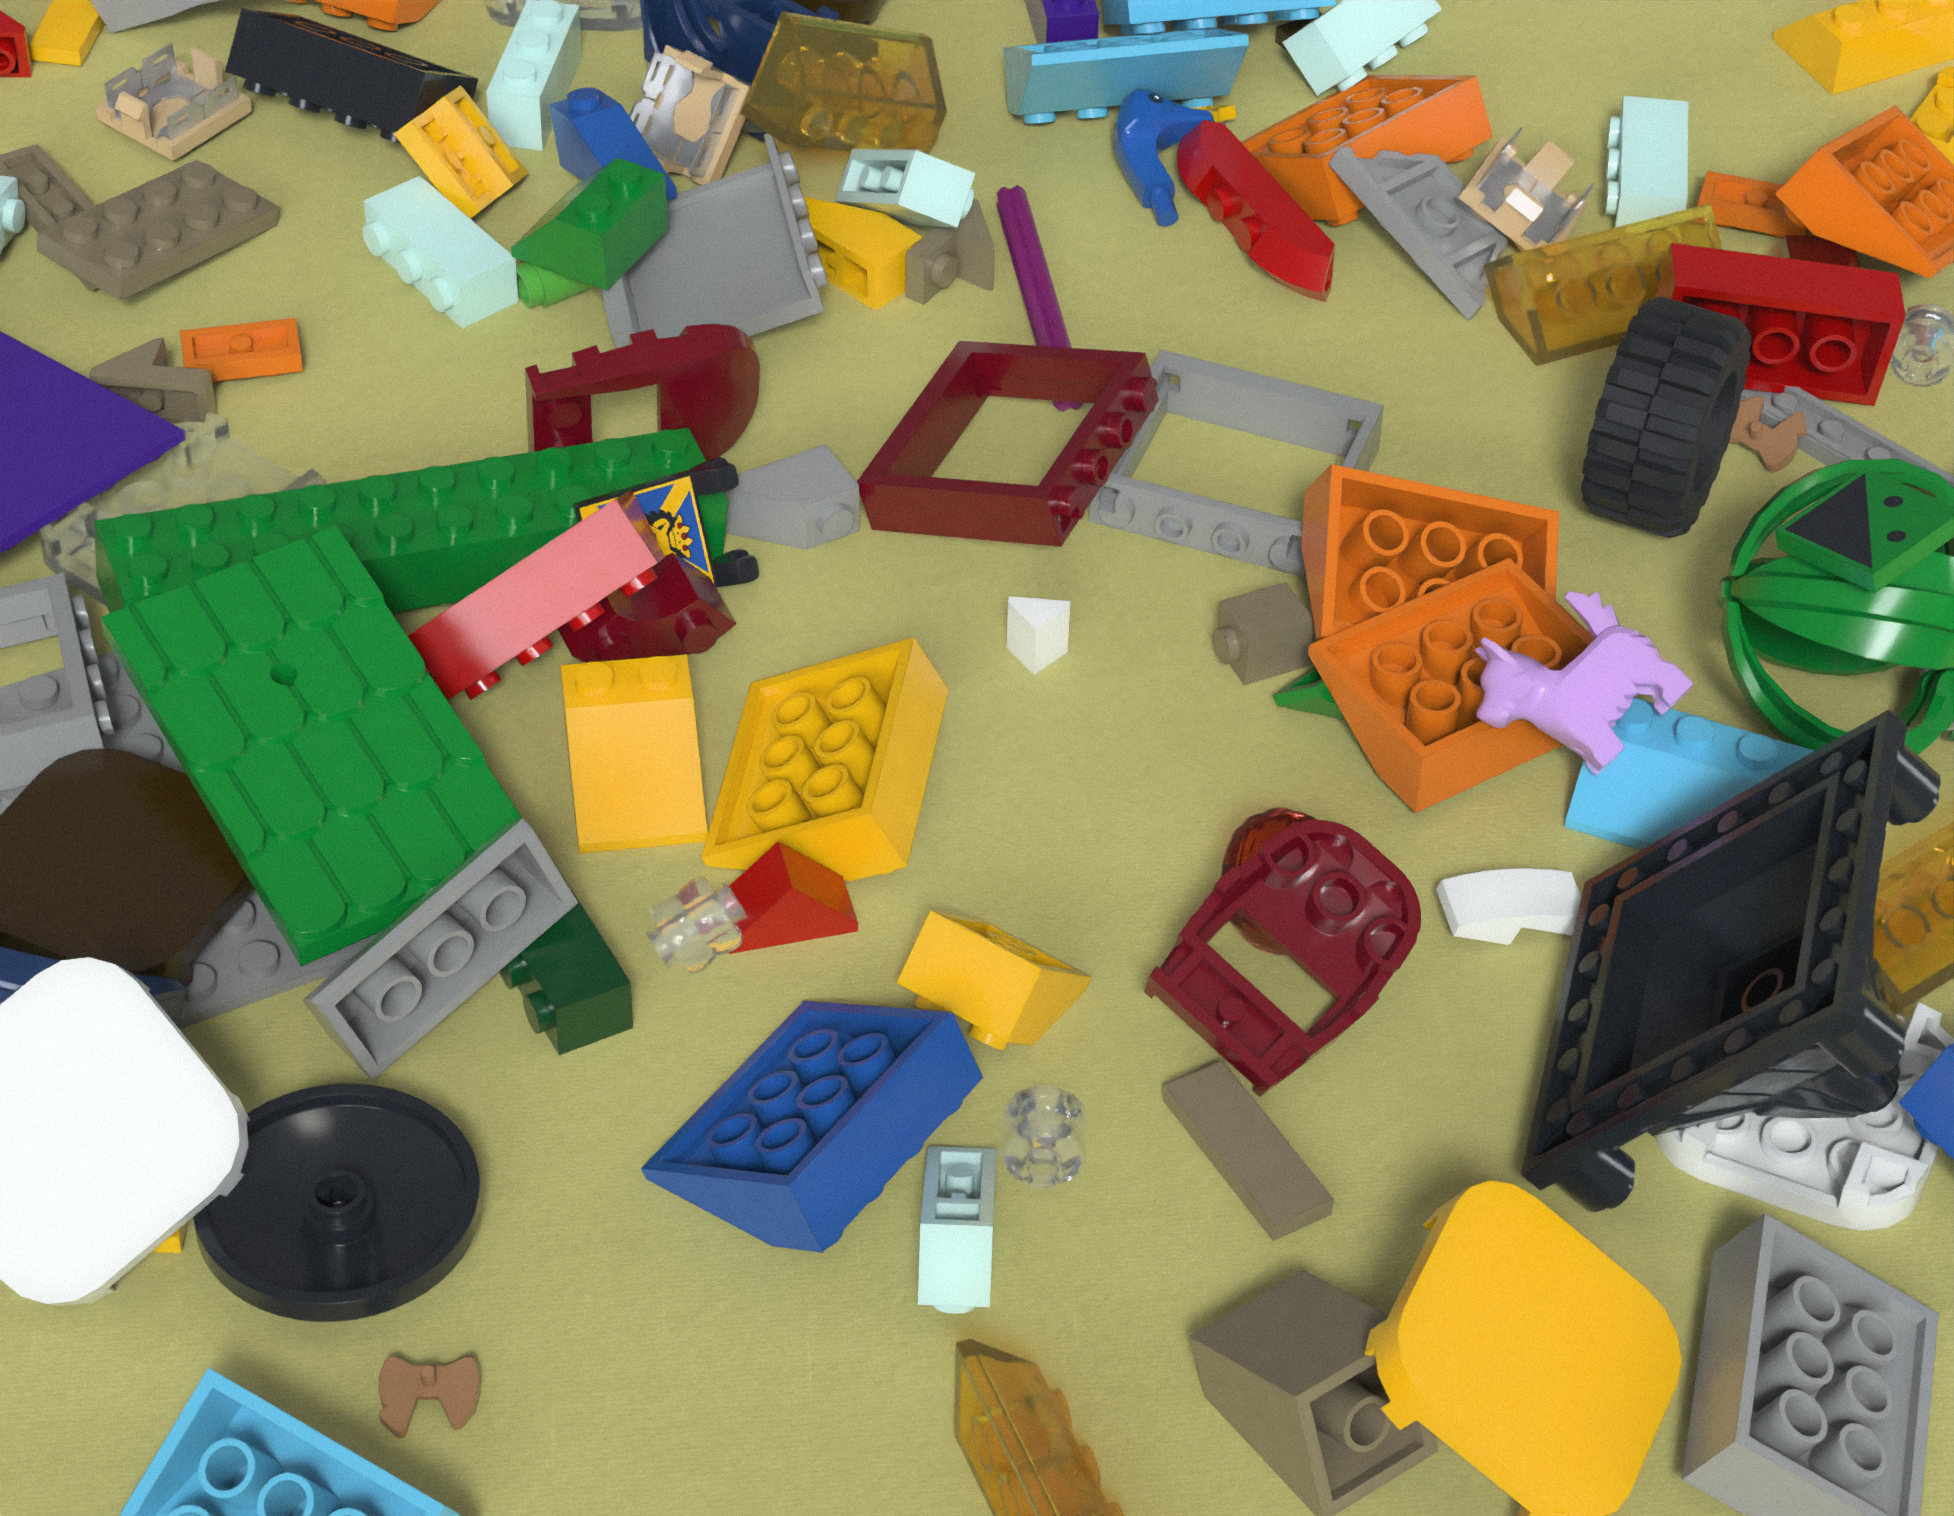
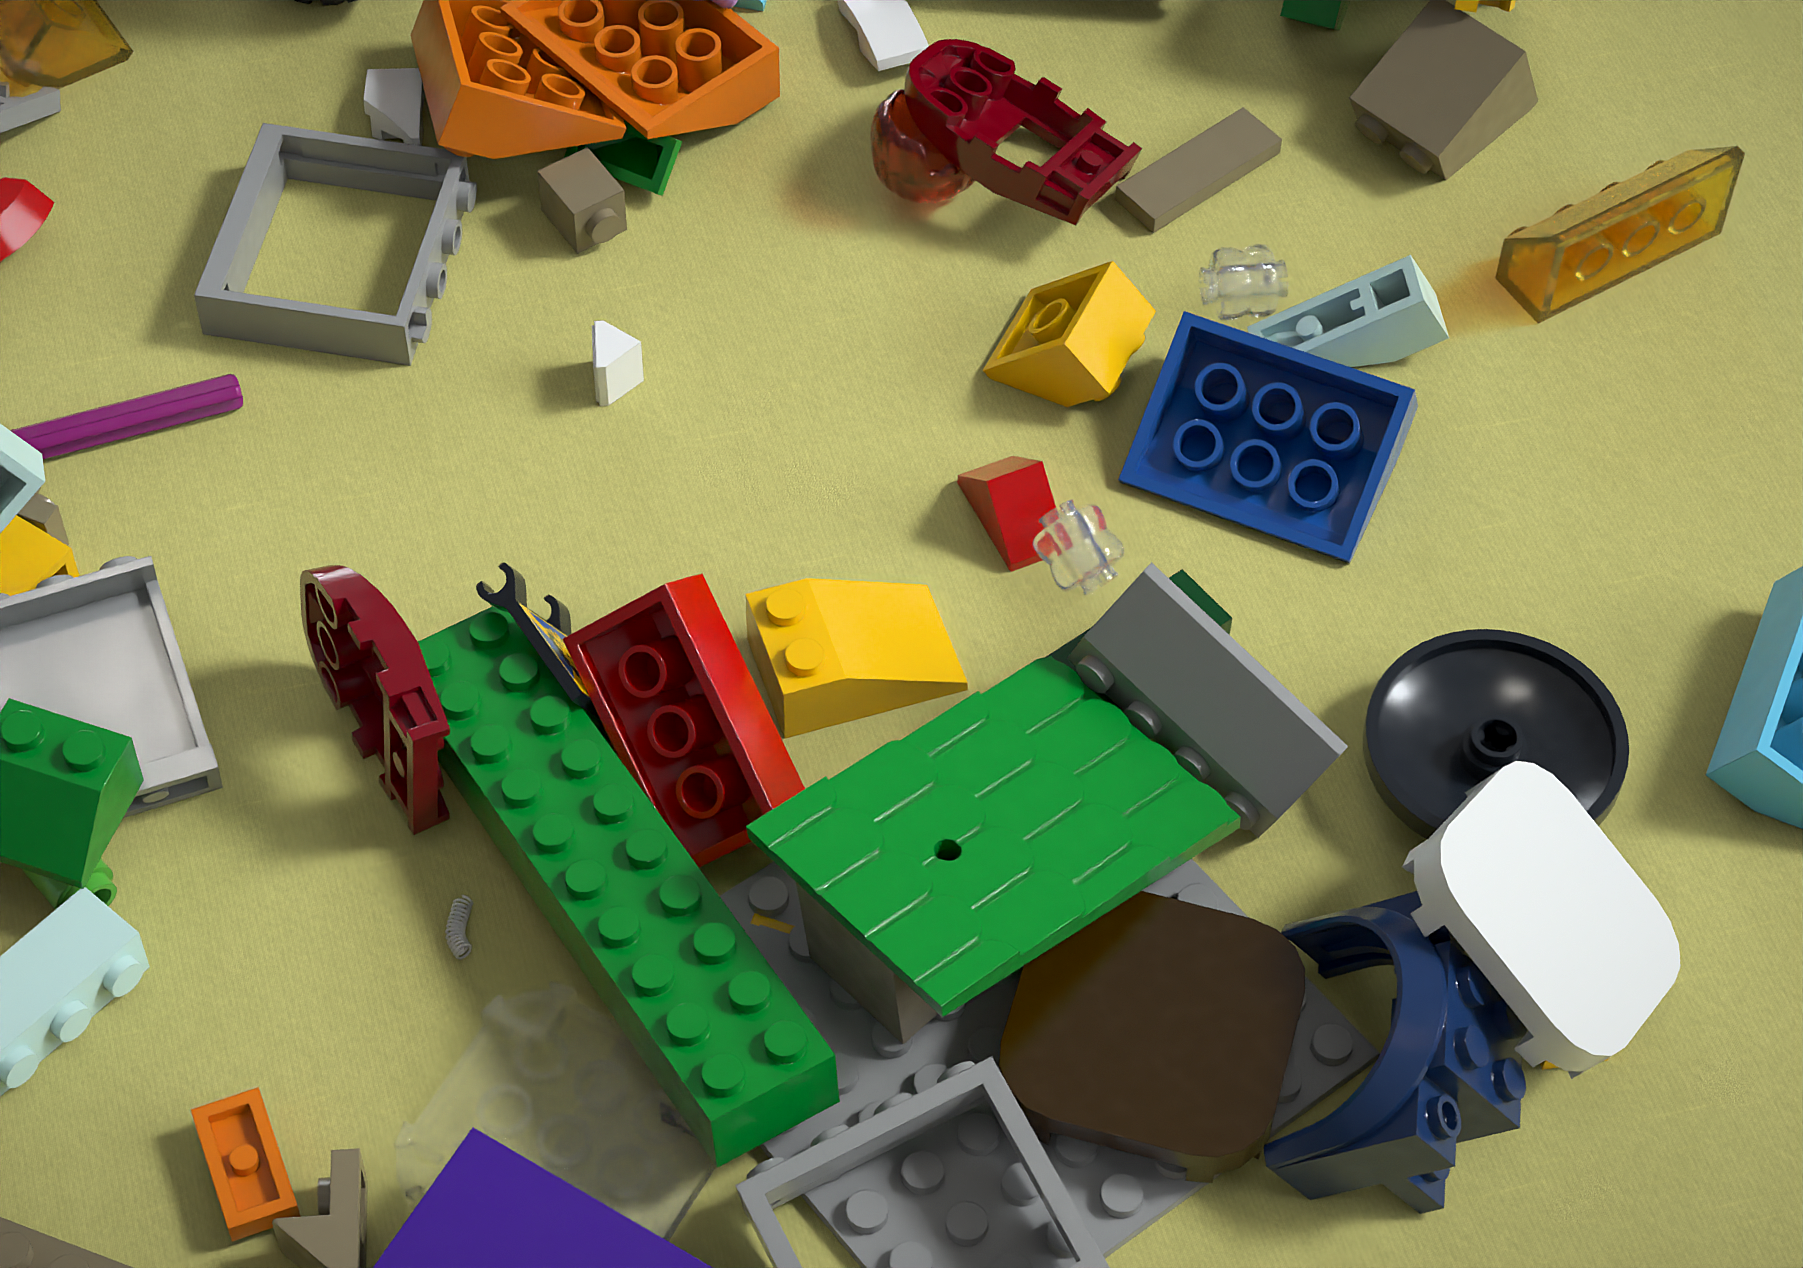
camera: 100 degrees left, 10 degrees up
(403, 1384) = (1638, 680): medium nougat piece -> none
(795, 501) = (440, 567): light grey slope -> none
(832, 763) = (833, 492): yellow slope -> none
(899, 479) = (339, 483): dark red window -> none

